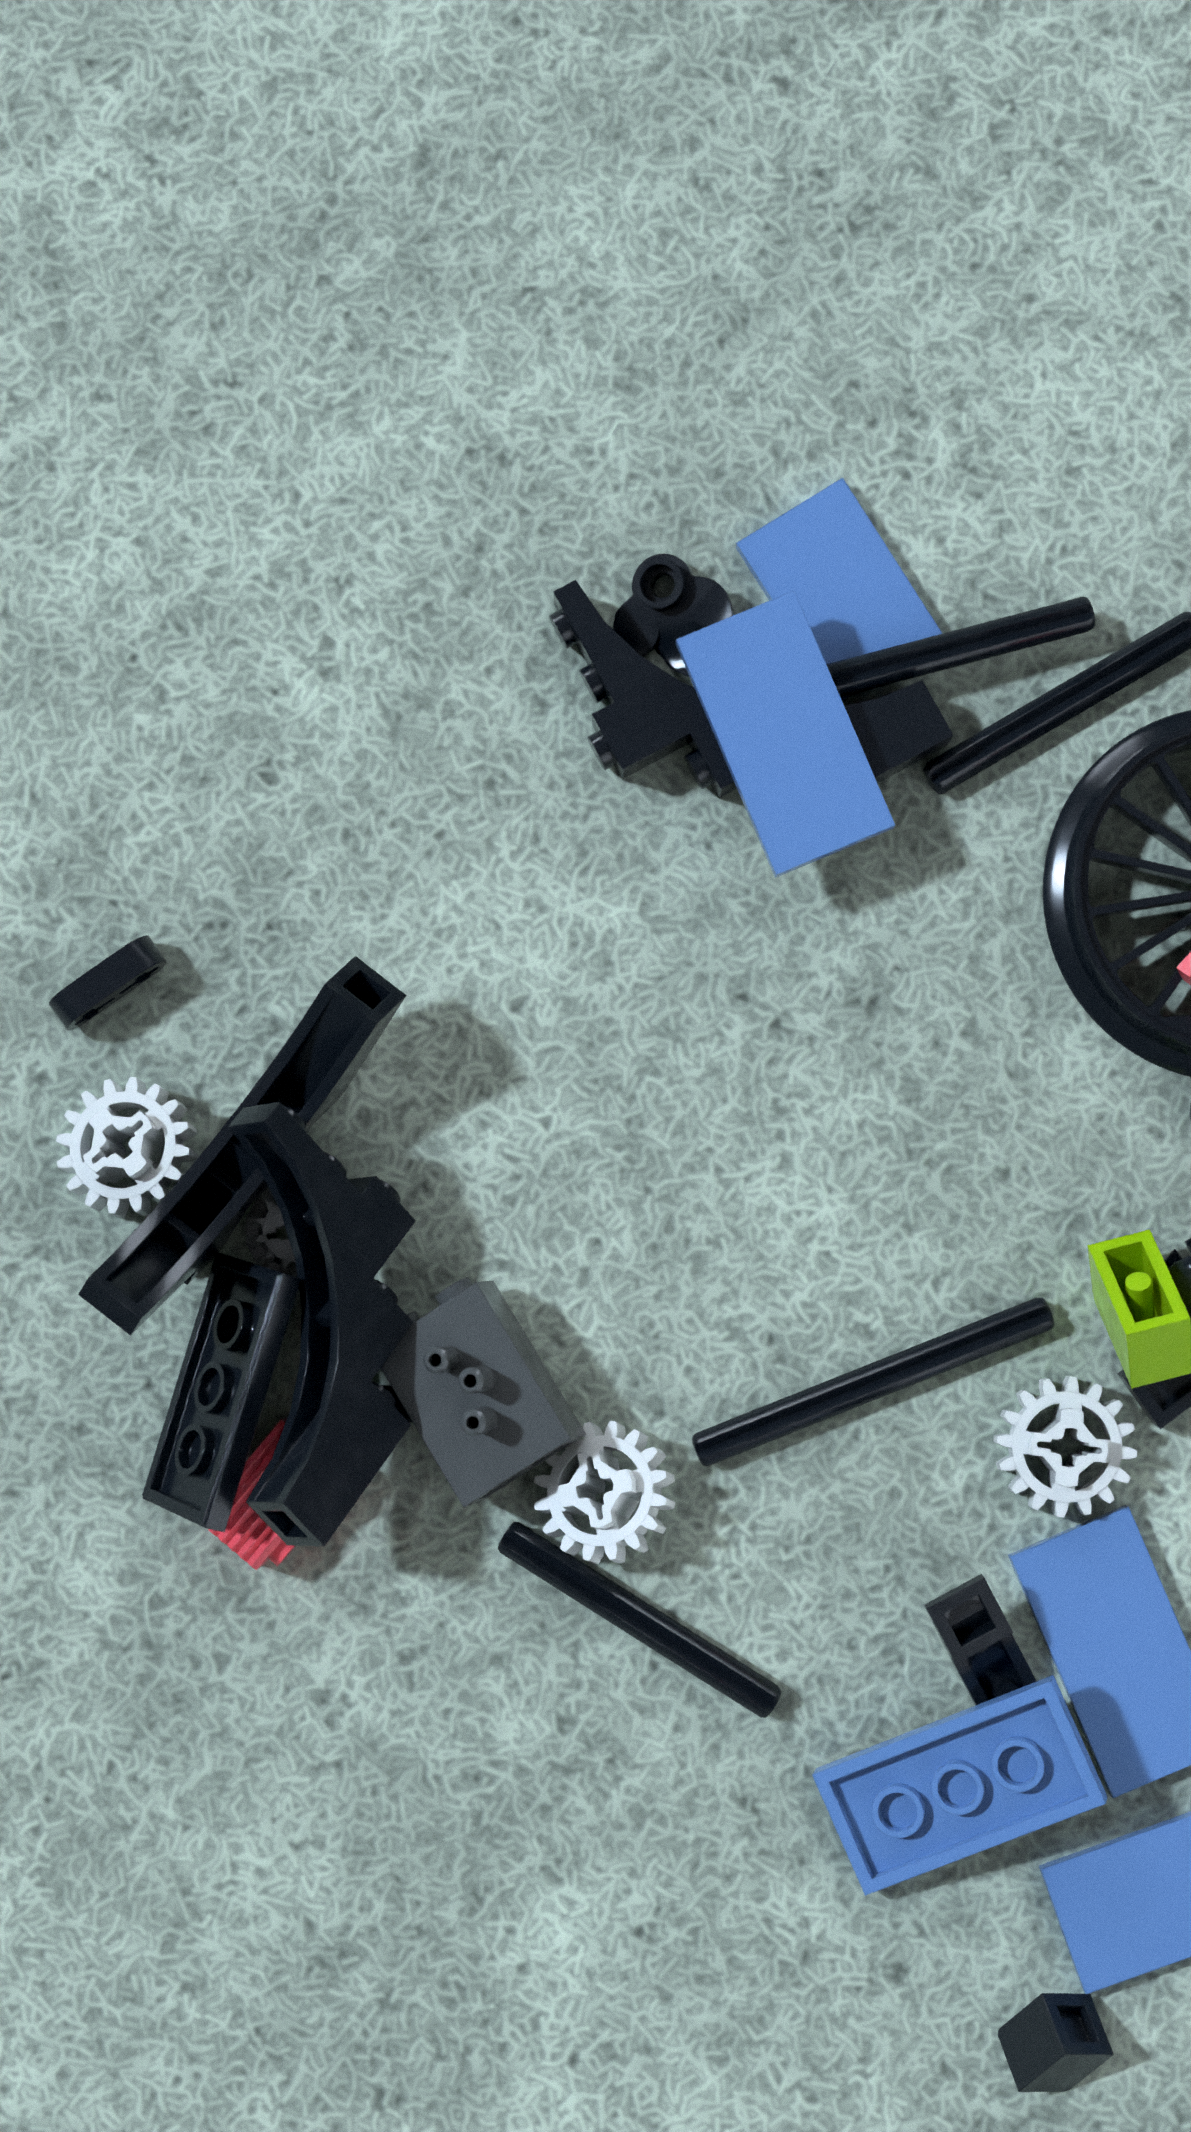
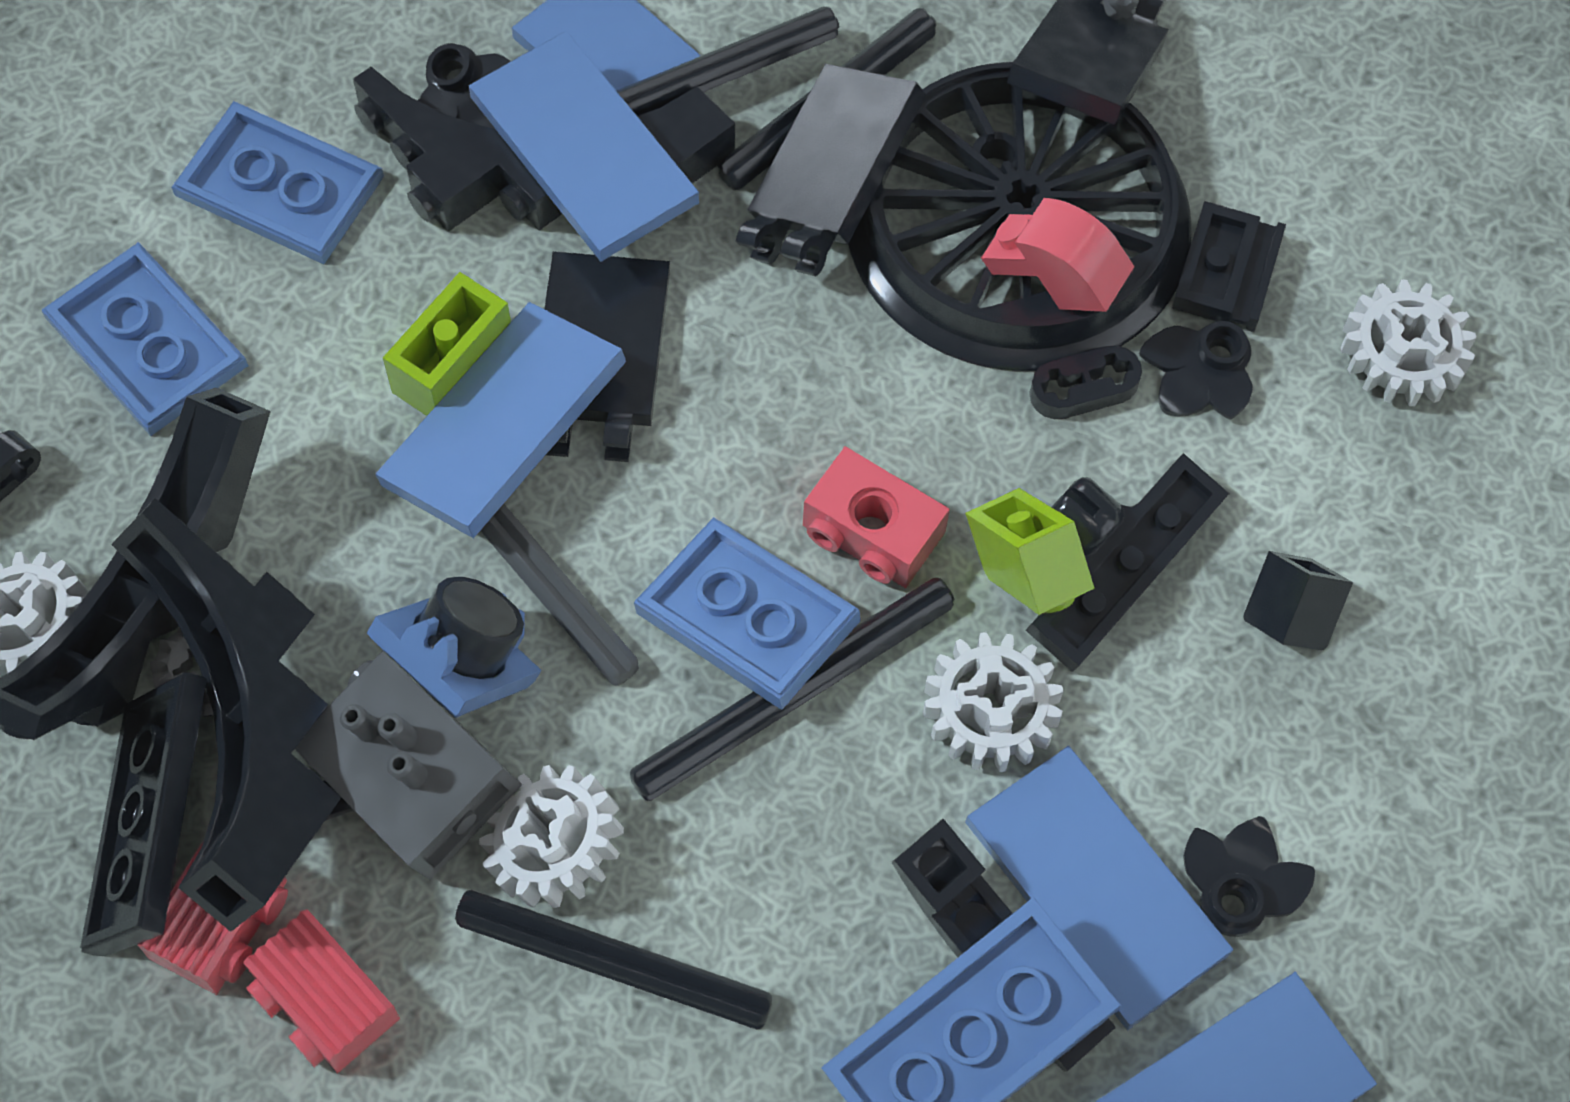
camera: 20 degrees left, 20 degrees down
(288, 843) = (144, 337): none -> medium blue tile
(359, 1596) = (320, 992): none -> coral brick
(453, 682) = (278, 182): none -> medium blue tile
(550, 1280) = (459, 644): none -> piece
(599, 939) = (445, 342): none -> lime brick
(639, 1034) = (500, 419): none -> medium blue tile
(640, 1191) = (560, 597): none -> dark grey axle
(755, 958) = (625, 306): none -> black tile
(843, 1295) = (747, 612): none -> medium blue tile
(1030, 1236) = (862, 489): none -> coral brick
(1044, 805) = (829, 166): none -> tile

